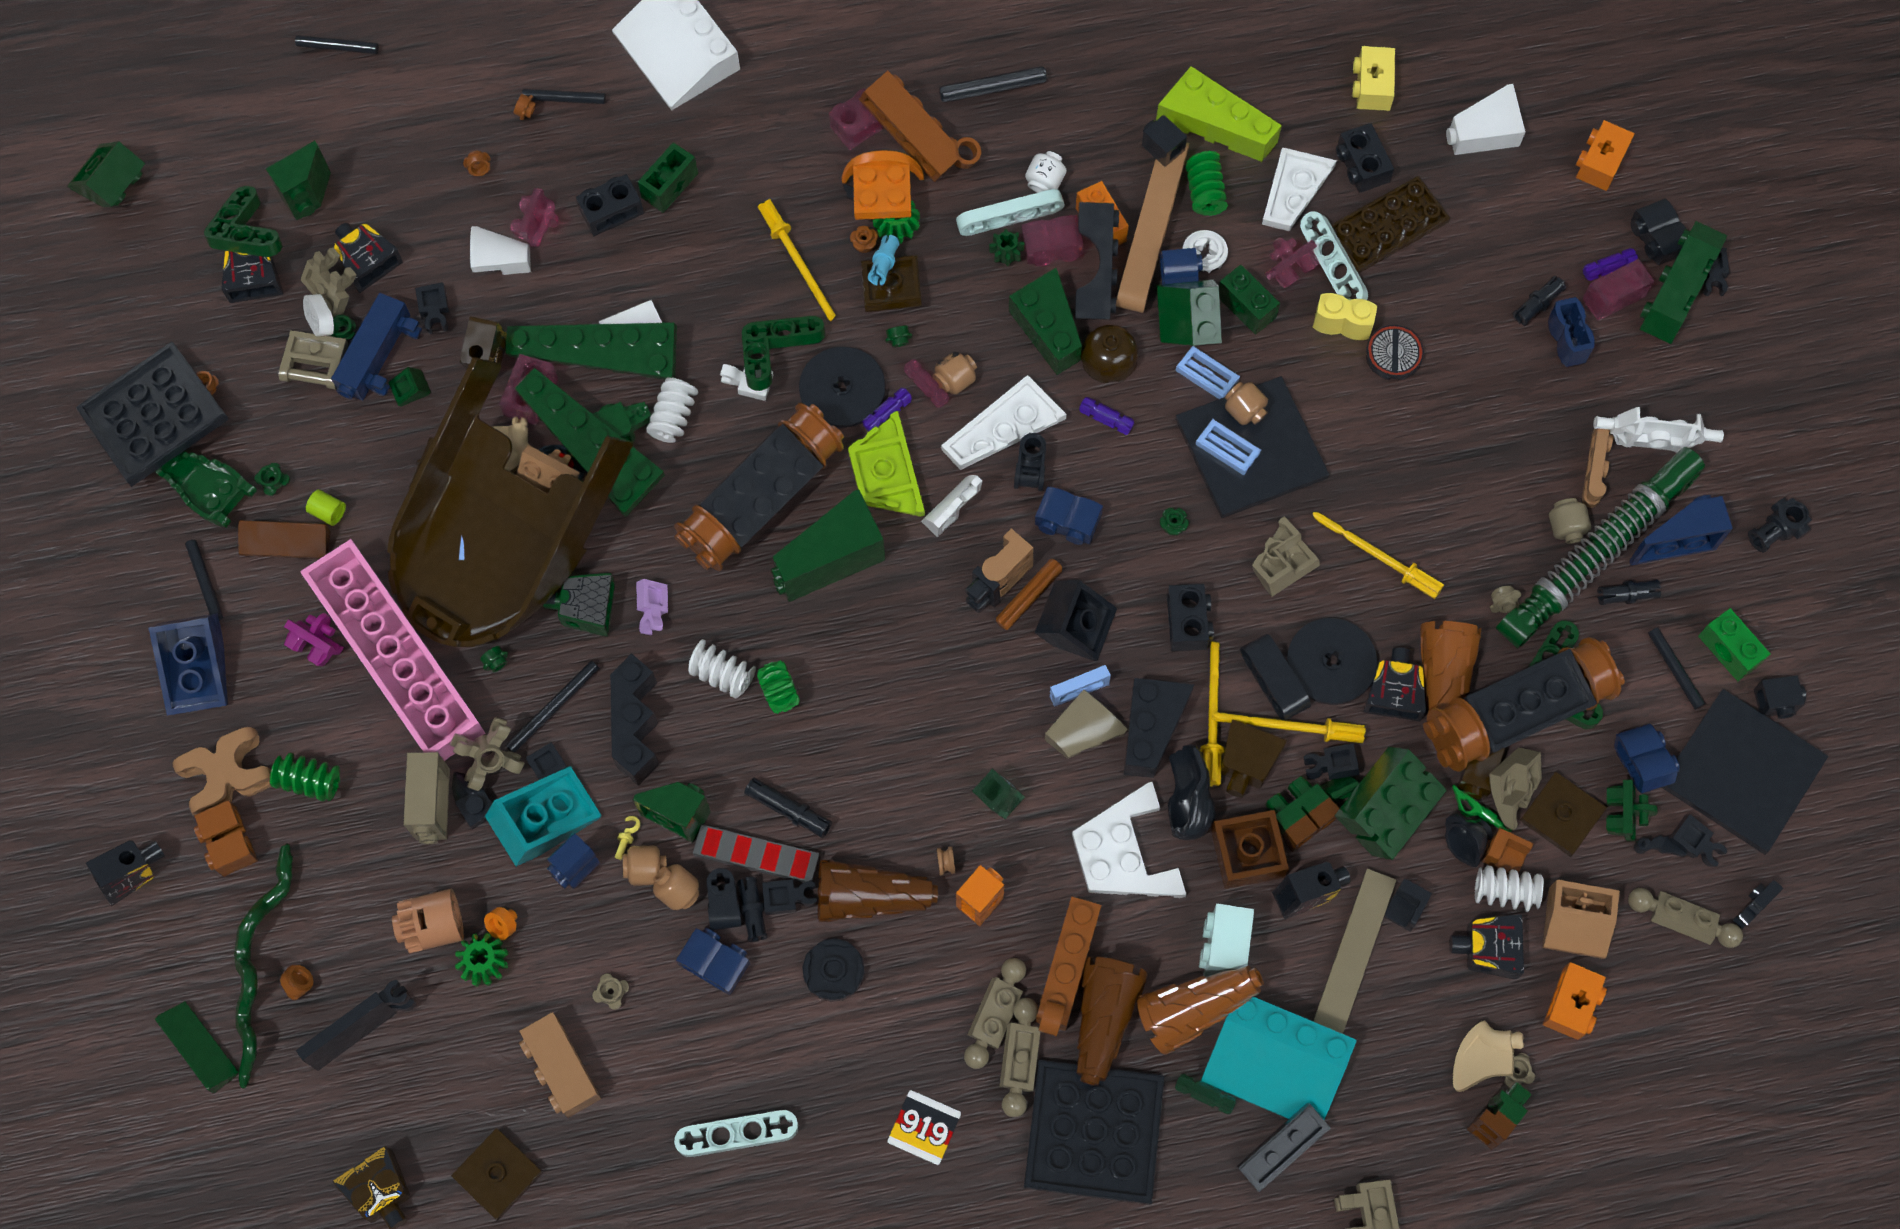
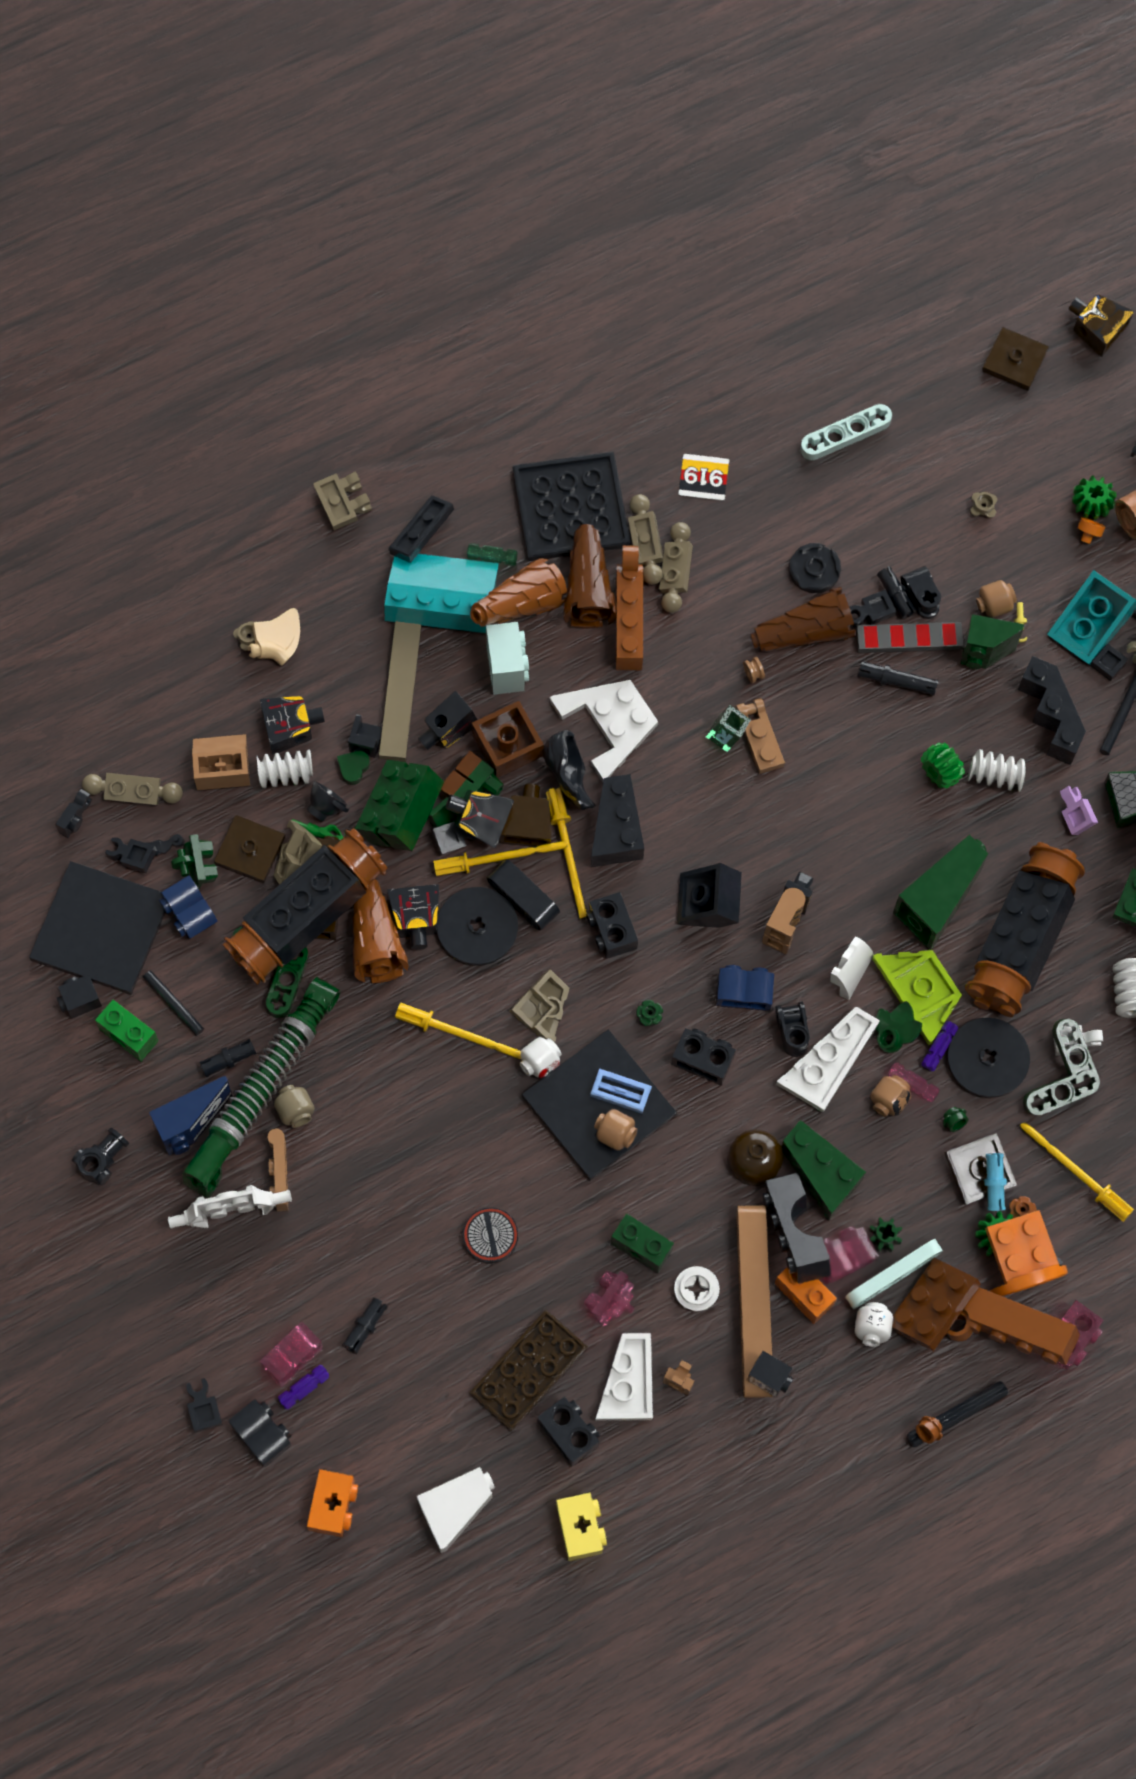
camera: 160 degrees right, 0 degrees up
(558, 1066) = (1000, 439): medium nougat brick -> none
(572, 862) = (1053, 580): dark blue brick -> none
(676, 887) = (963, 587): medium nougat head -> none
(713, 961) = (912, 544): dark blue brick -> none
(923, 436) = (897, 1024): none -> dark green plate
(962, 779) = (761, 738): none -> medium nougat plate
(980, 894) = (717, 641): orange brick -> none
(983, 171) = (934, 1304): none -> reddish brown plate
(1026, 67) = (929, 1429): none -> dark orange plate
(1029, 594) = (757, 912): dark orange axle -> none
(1073, 687) = (688, 841): light blue tile -> none
(1083, 726) = (674, 810): dark tan slope -> none
(1106, 415) = (739, 1096): dark purple axle -> none
(1138, 455) = (700, 1063): none -> black brick
(1180, 265) = (711, 1244): dark blue brick -> none
(1189, 313) = (691, 1206): dark green slope -> none
(1201, 381) = (655, 1175): light blue tile -> none
(1206, 183) = (715, 1356): green piece -> none
(1219, 116) = (729, 1435): lime wedge -> none
(1247, 170) = (680, 1378): none -> medium nougat plate
(1302, 501) = (540, 1057): none -> white head
(1302, 763) = (481, 814): none -> black torso
(1336, 258) = (568, 1313): light aqua beam -> none
(1344, 316) = (554, 1251): light yellow brick -> none
(1429, 875) = (353, 765): none -> dark green tile
(1501, 1117) = (254, 586): hips -> none
(1504, 599) = (337, 1018): dark tan plate -> none
(1507, 851) = (292, 802): dark orange panel -> none
(1563, 1014) = (215, 710): orange brick -> none
(1571, 332) = (332, 1296): dark blue brick -> none
(1682, 281) = (232, 1369): dark green brick -> none

